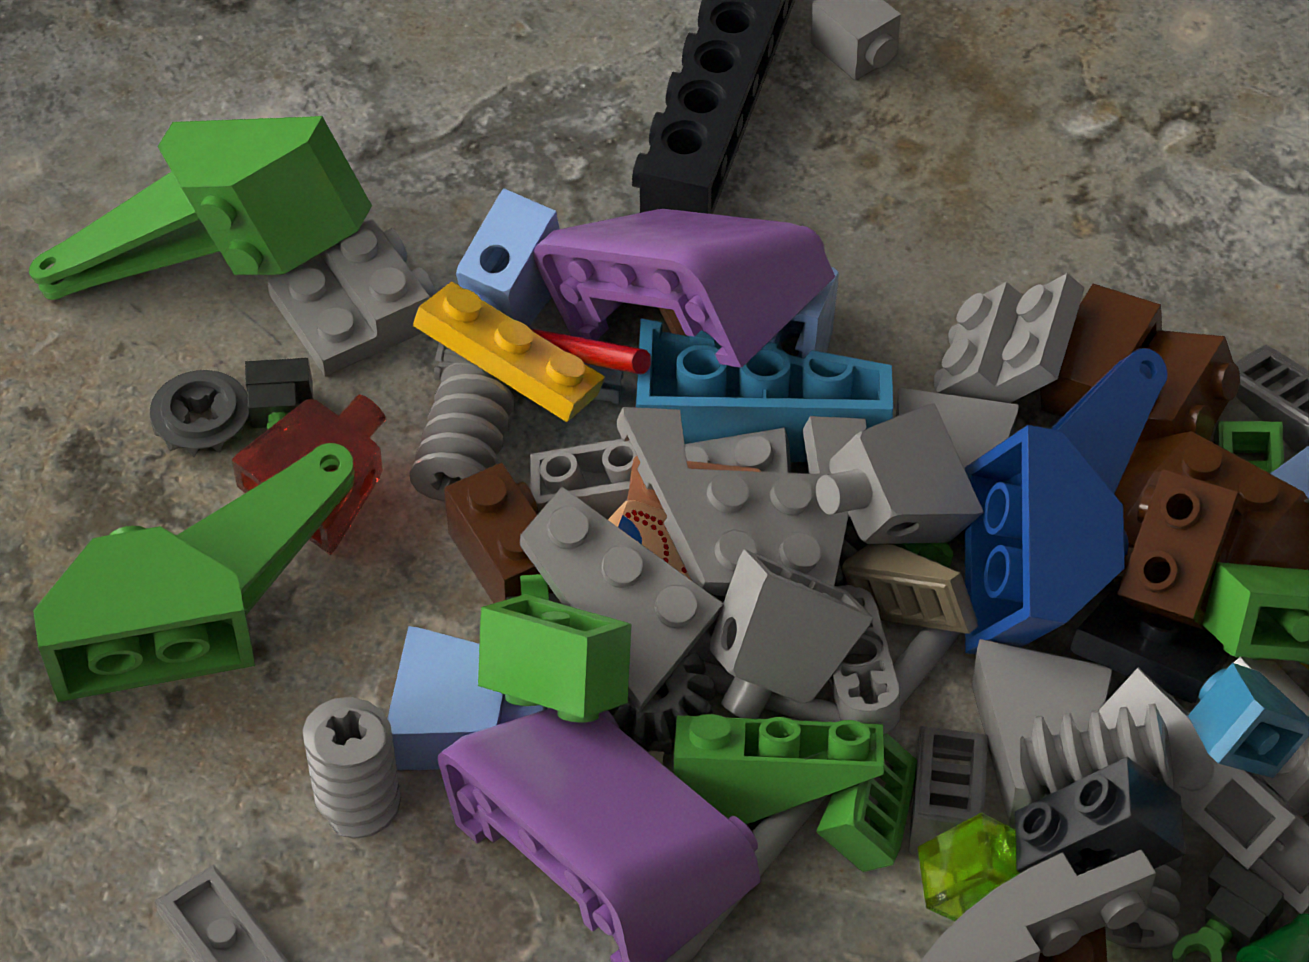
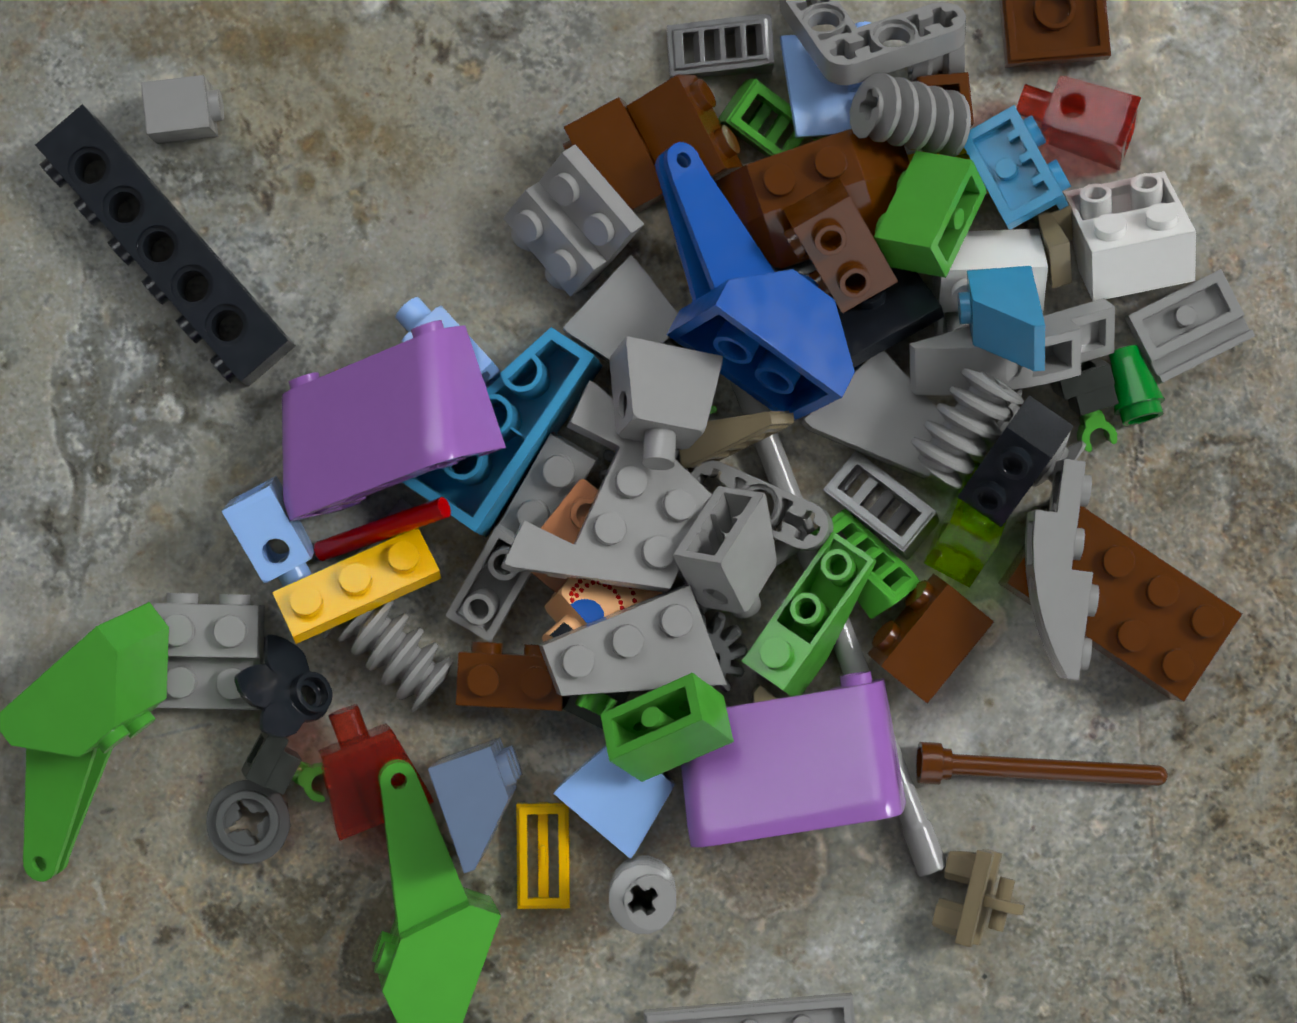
camera: 60 degrees left, 35 degrees up
(356, 354) = (279, 686): none -> black plate
(356, 542) = (474, 795): none -> sand blue slope
(364, 680) = (543, 900): none -> yellow tile
(839, 898) = (929, 637): none -> reddish brown brick

